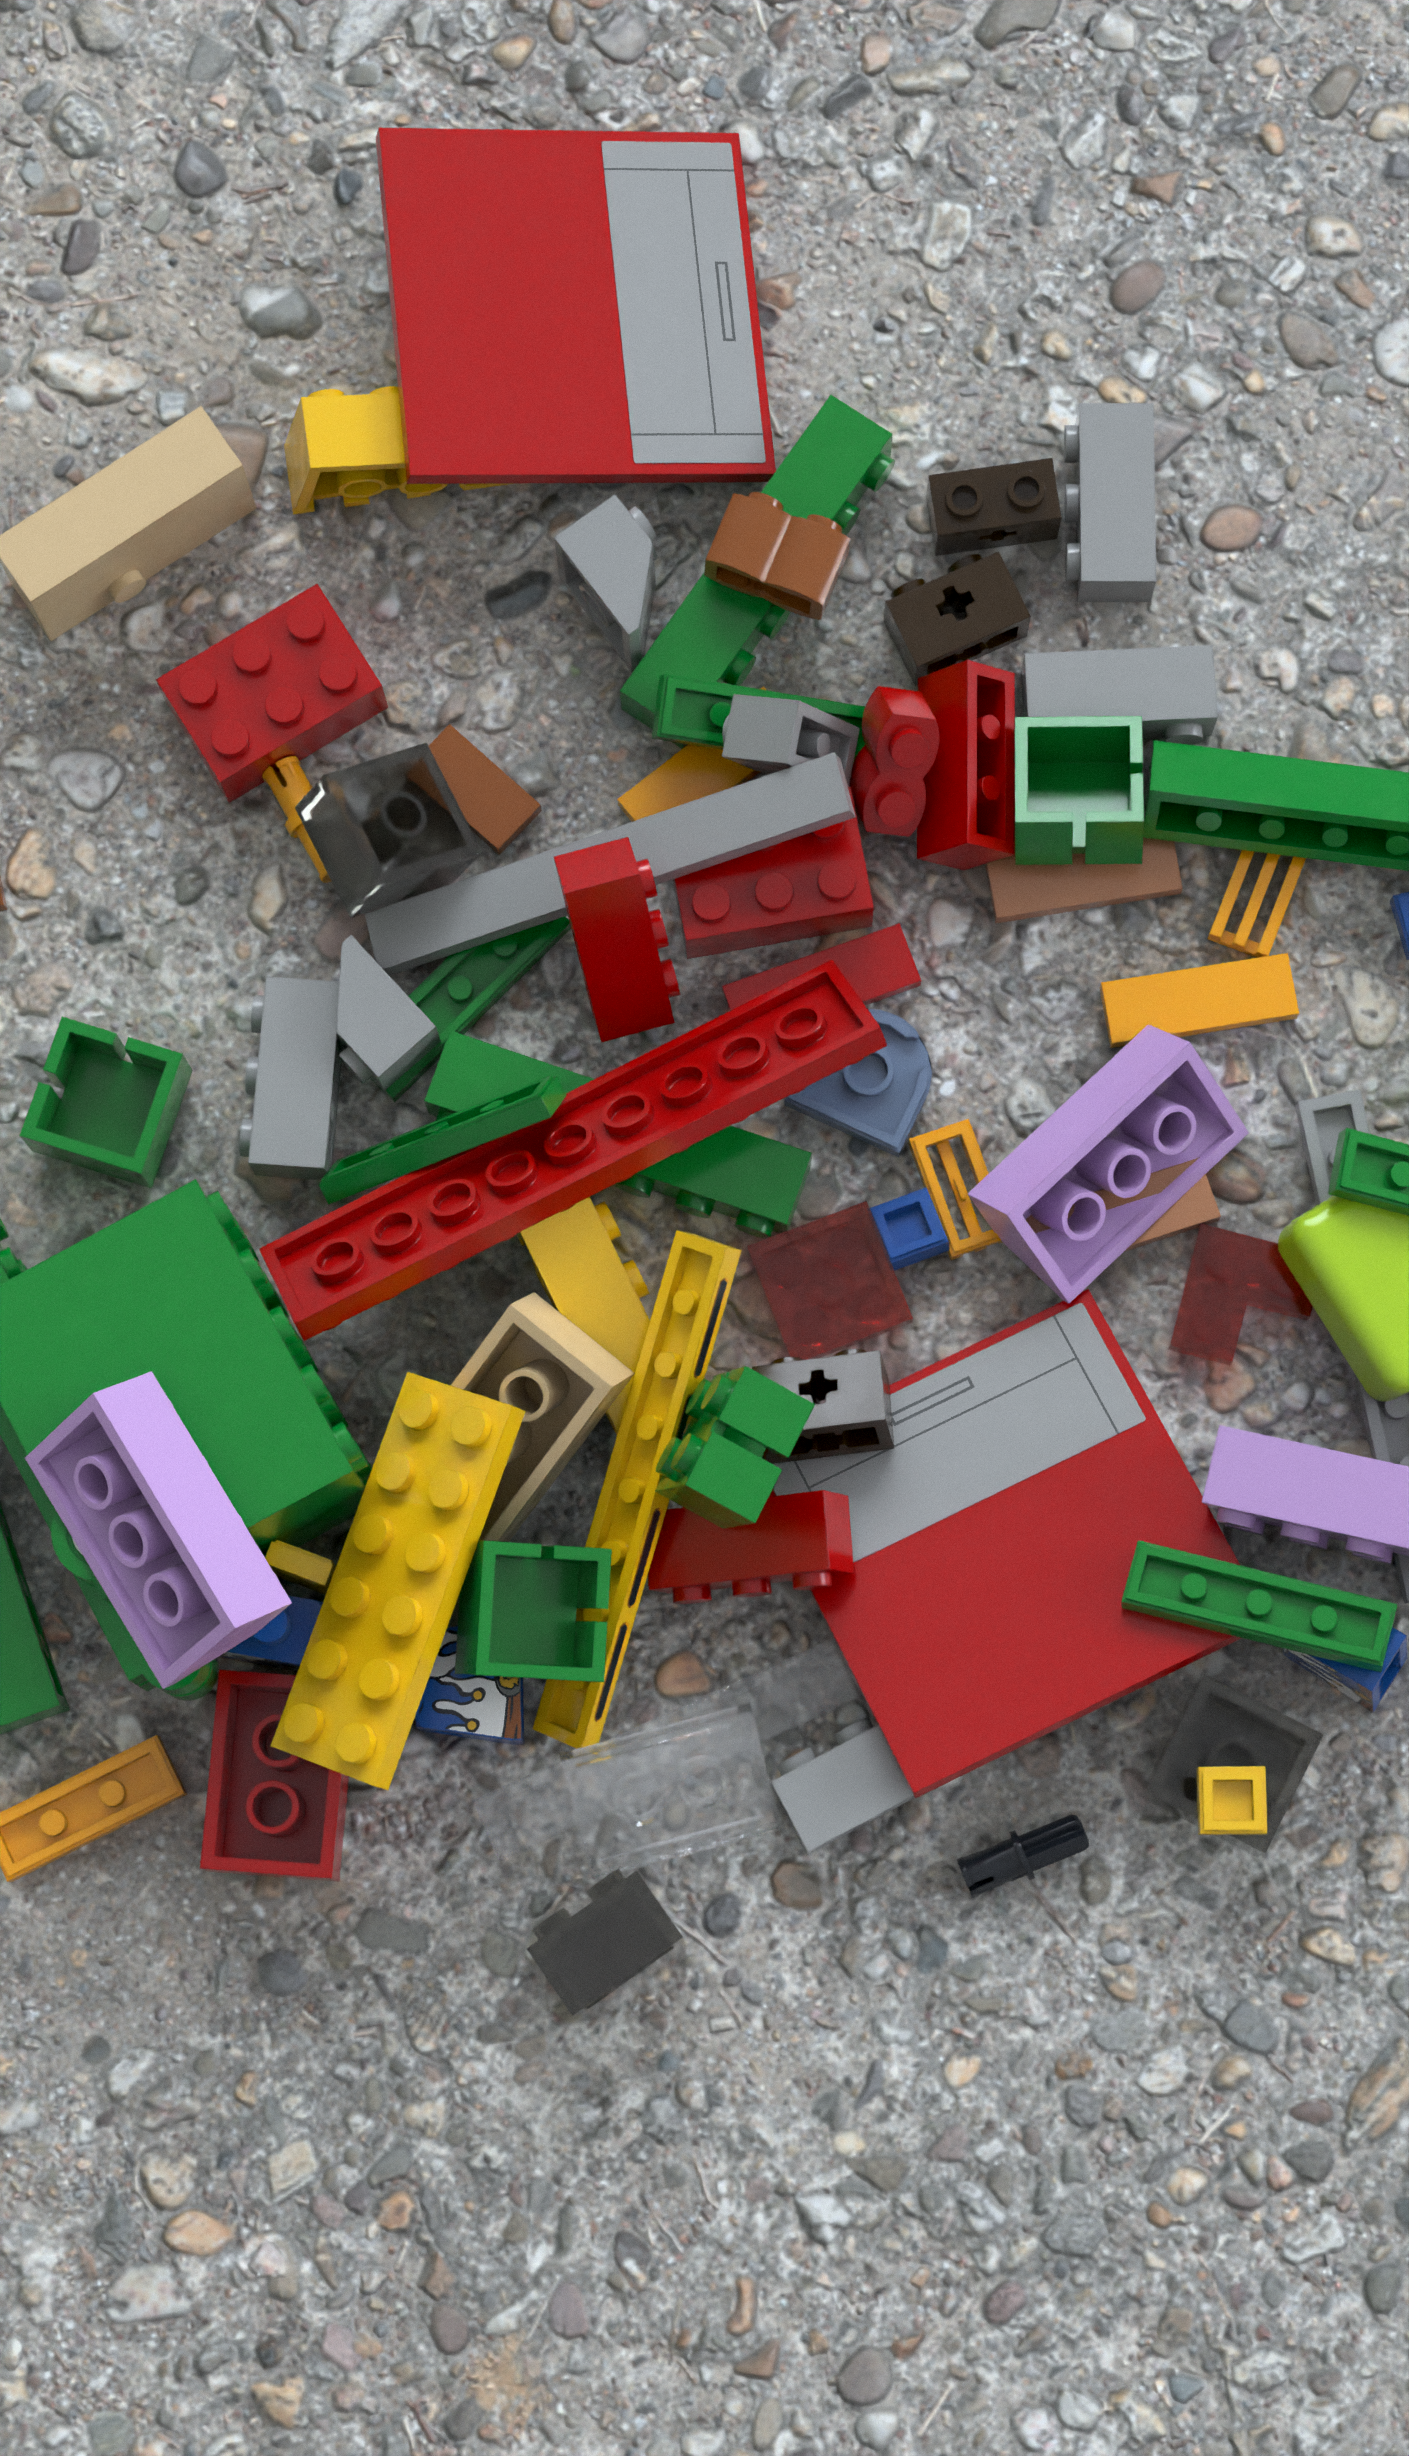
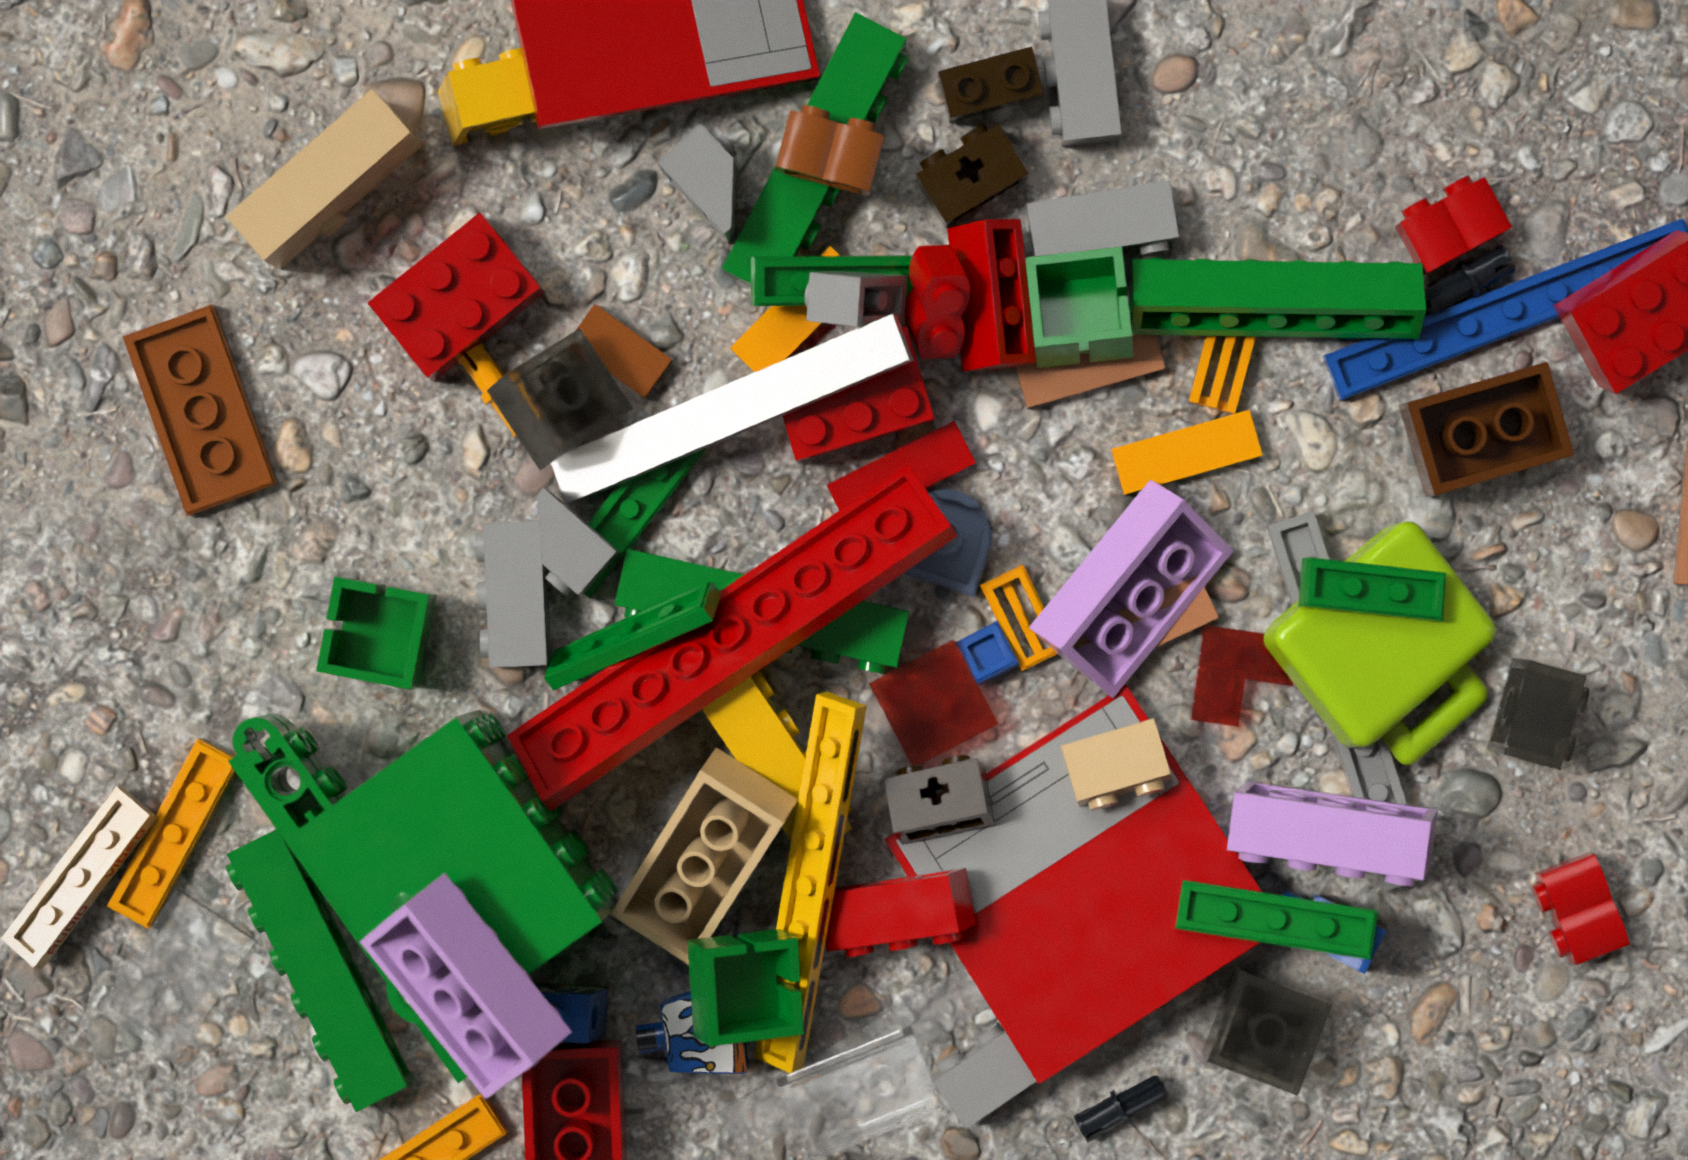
camera: 10 degrees left, 10 degrees up
(300, 1566) = (573, 967): yellow tile -> none
(397, 1580) = (643, 978): yellow plate -> none
(618, 938) = (744, 468): red brick -> none
(719, 1459) = (868, 852): green piece -> none
(1066, 1381) = (1117, 764): none -> tan brick
(1231, 1800) = (1270, 1062): yellow tile -> none

